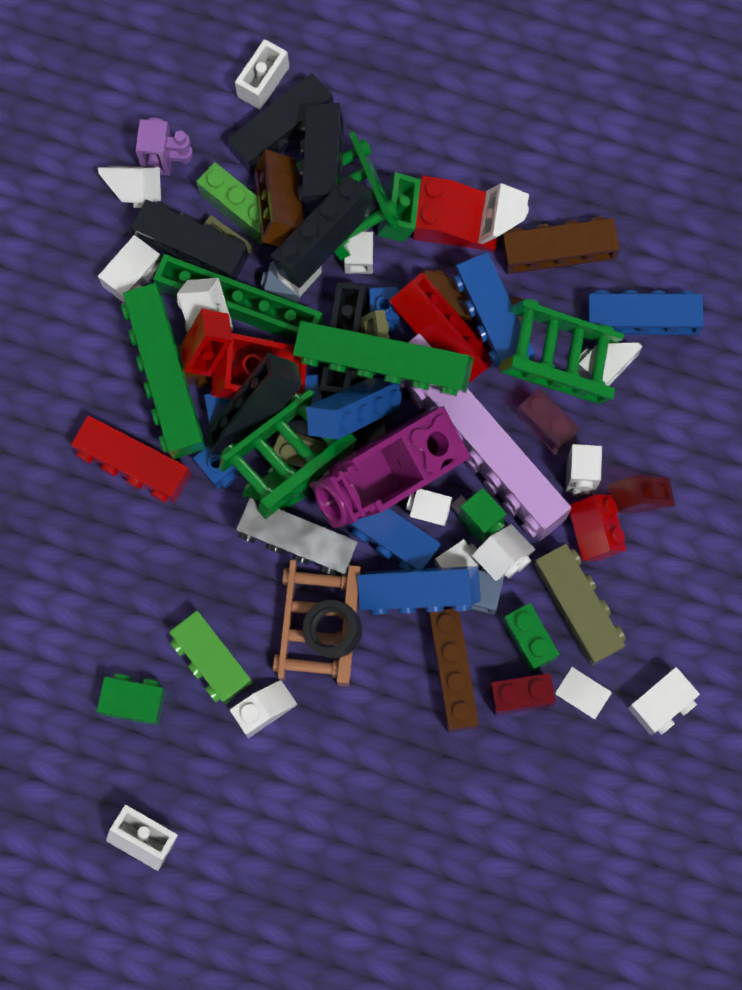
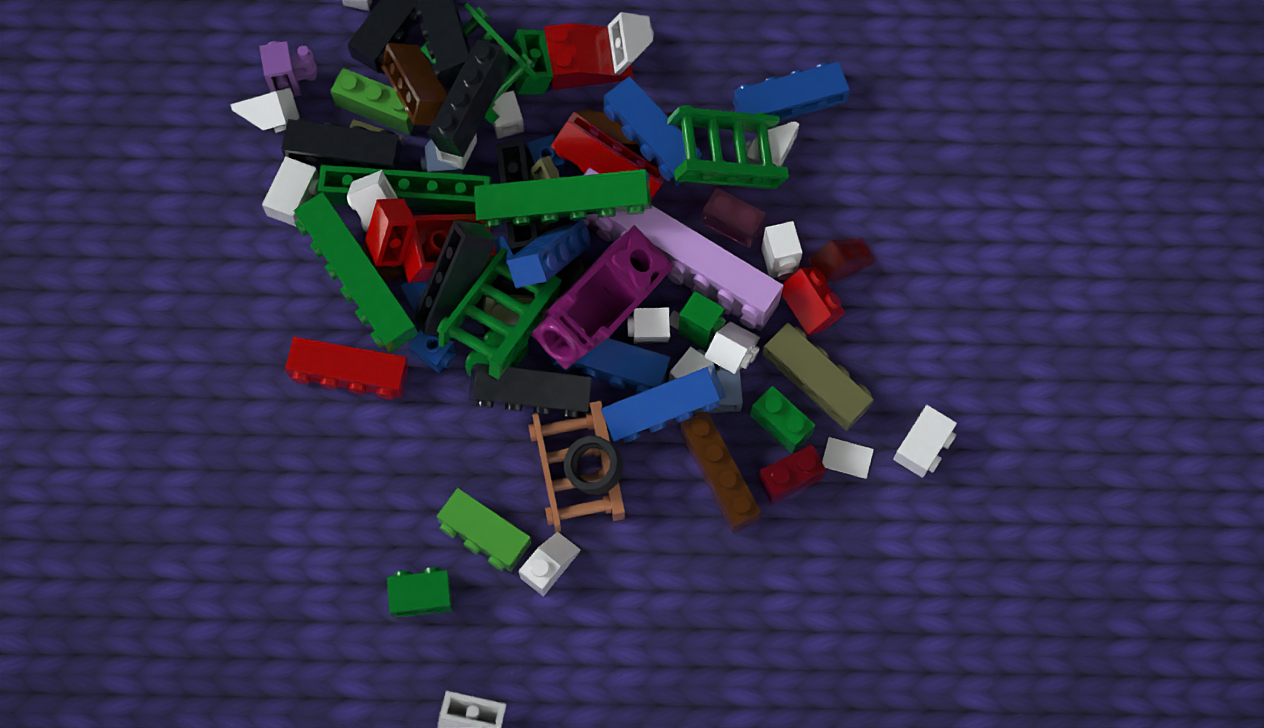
camera: 20 degrees left, 5 degrees down
(560, 245) = (692, 56): reddish brown brick -> none

